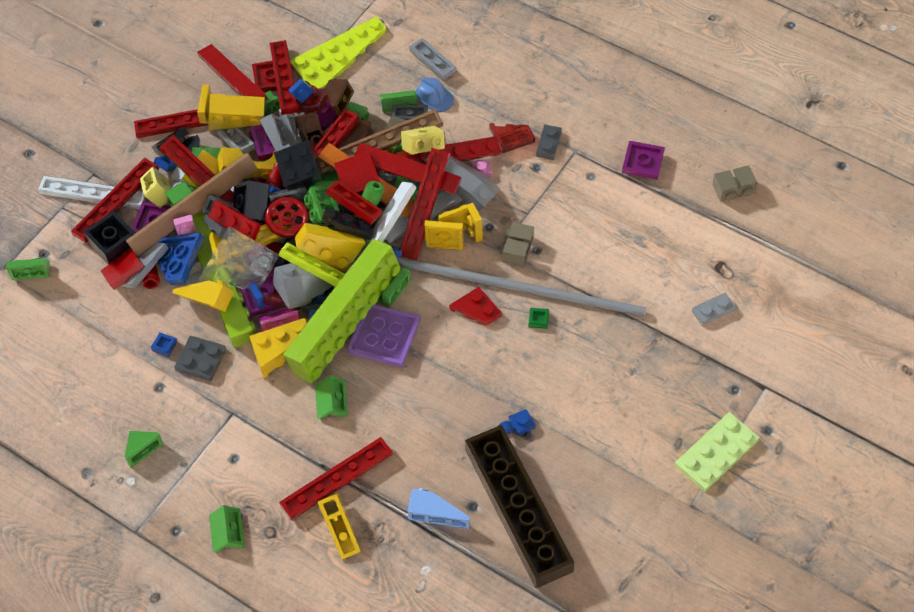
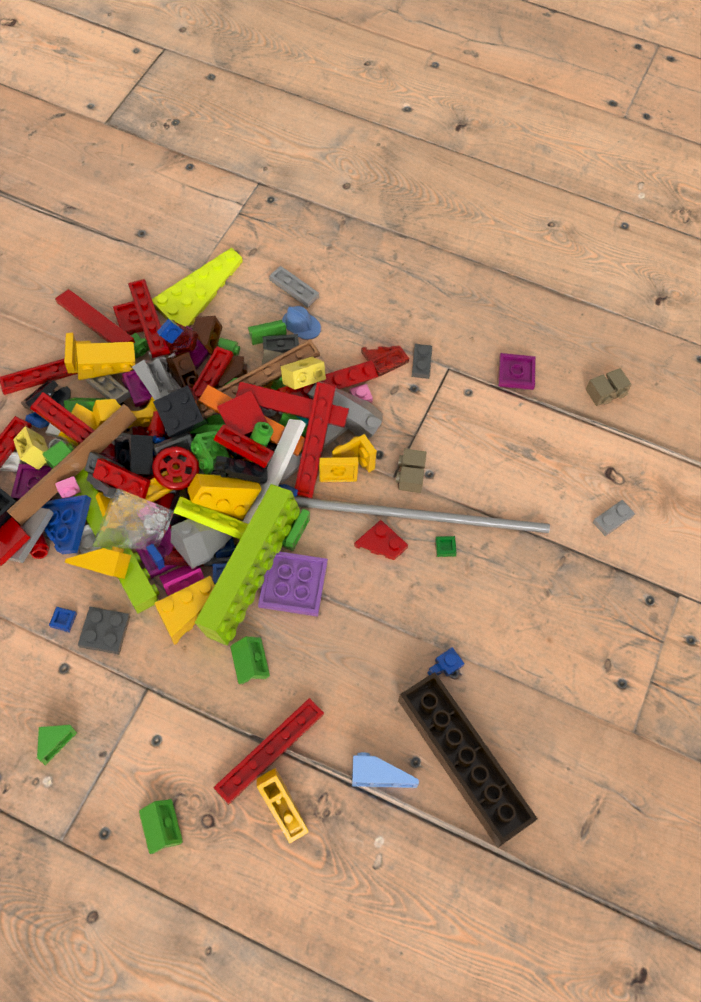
camera: 15 degrees left, 5 degrees up
(716, 451) = (648, 670): yellowish green plate -> none

